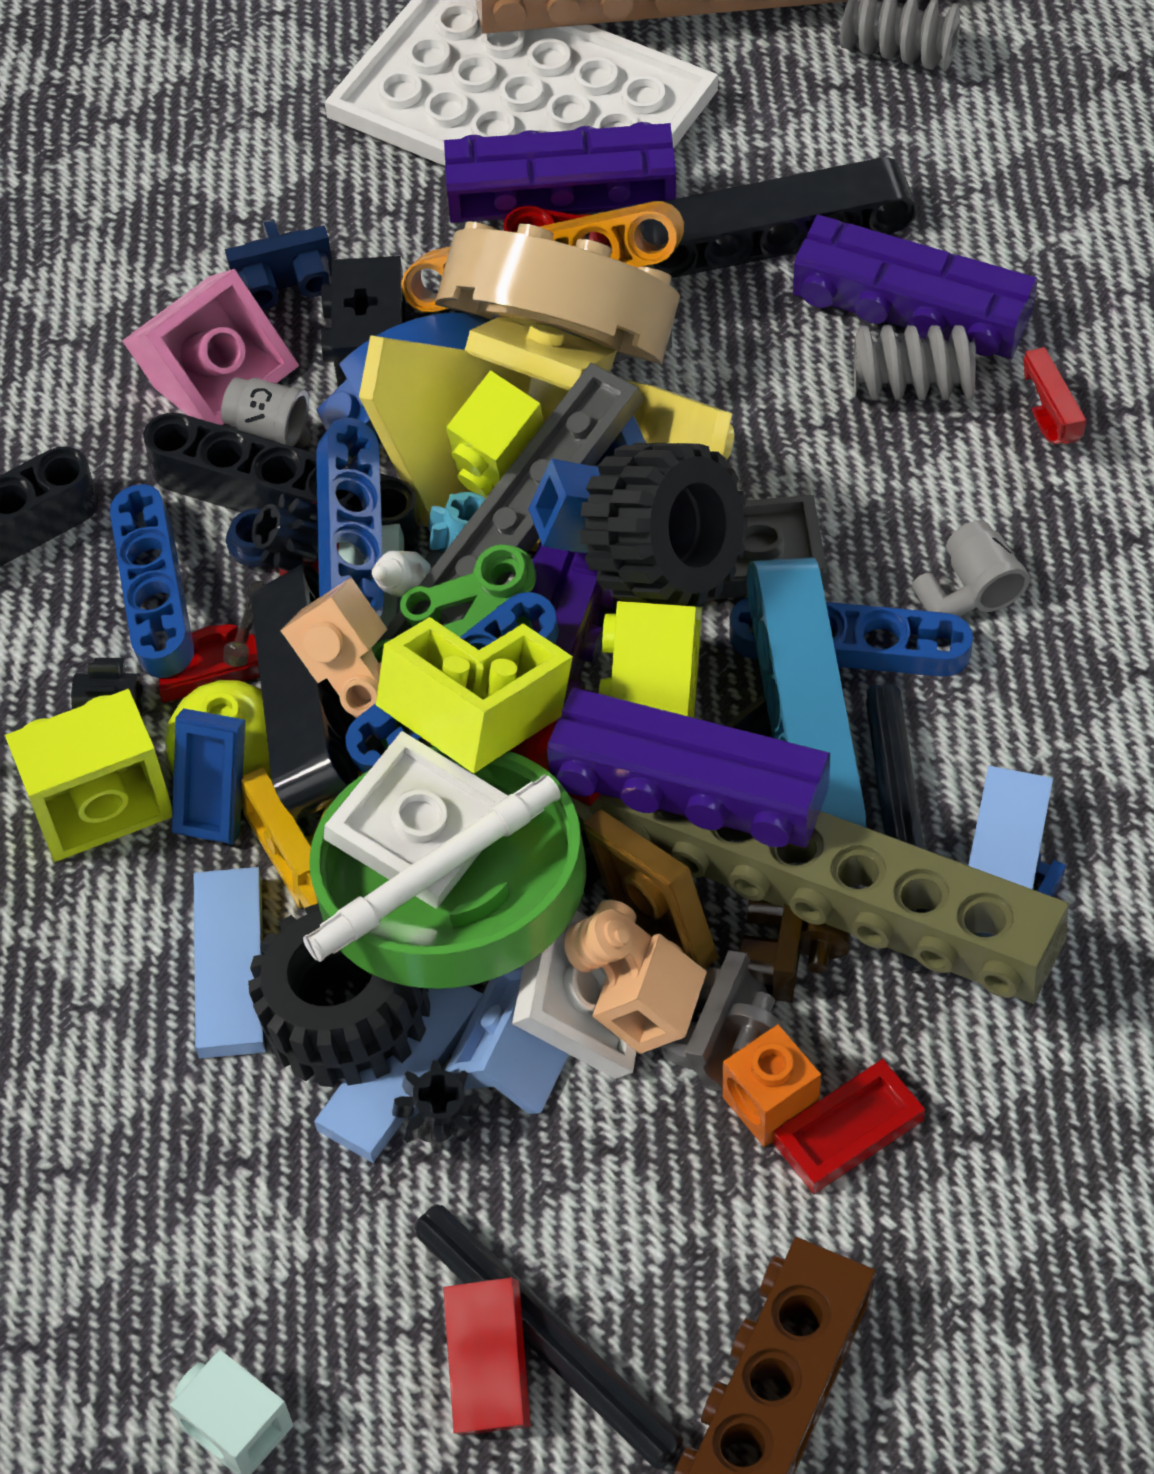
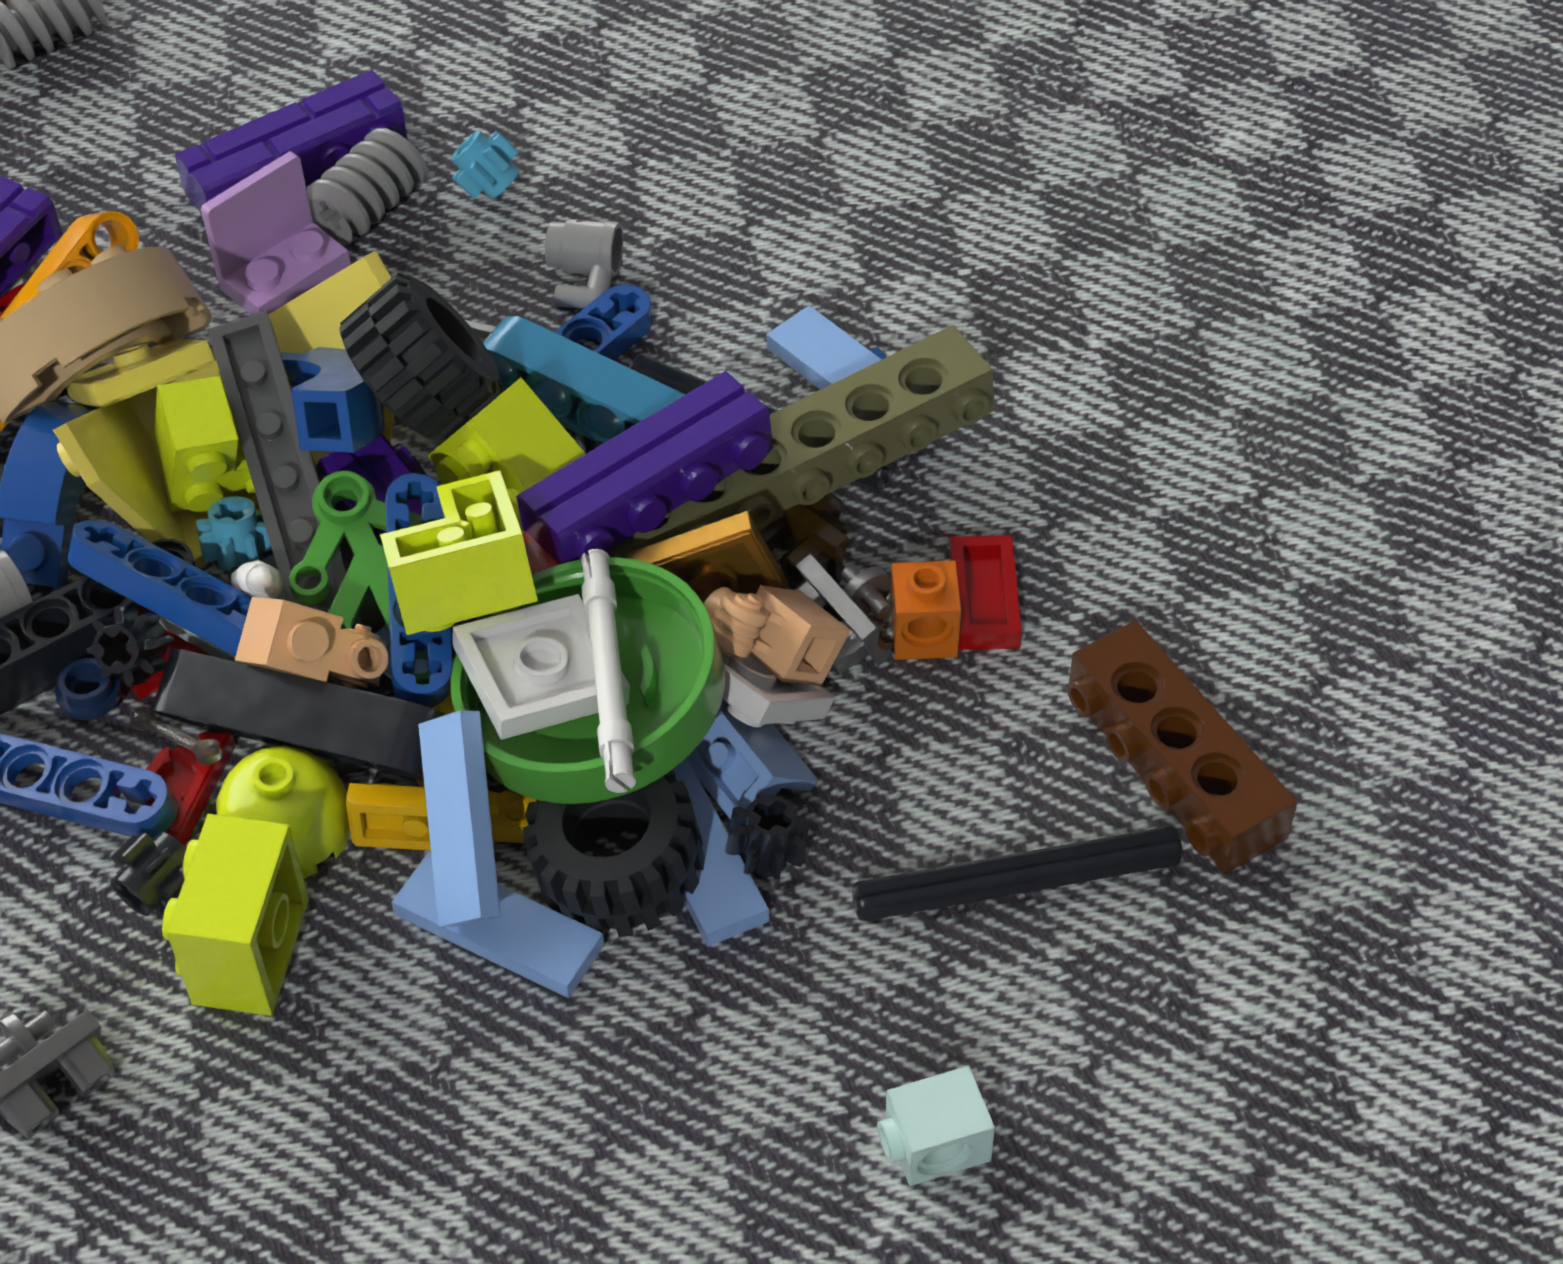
camera: 60 degrees left, 5 degrees down
(208, 776) = (323, 828): blue tile -> none
(258, 864) = (459, 819): none -> light blue tile
(486, 1356) = (1016, 916): tile -> none
(776, 214) = (143, 172): black beam -> none
(787, 342) = (267, 240): none -> lavender bracket
(1013, 430) = (485, 164): none -> medium azure gear
(1059, 415) = (462, 121): red tile -> none

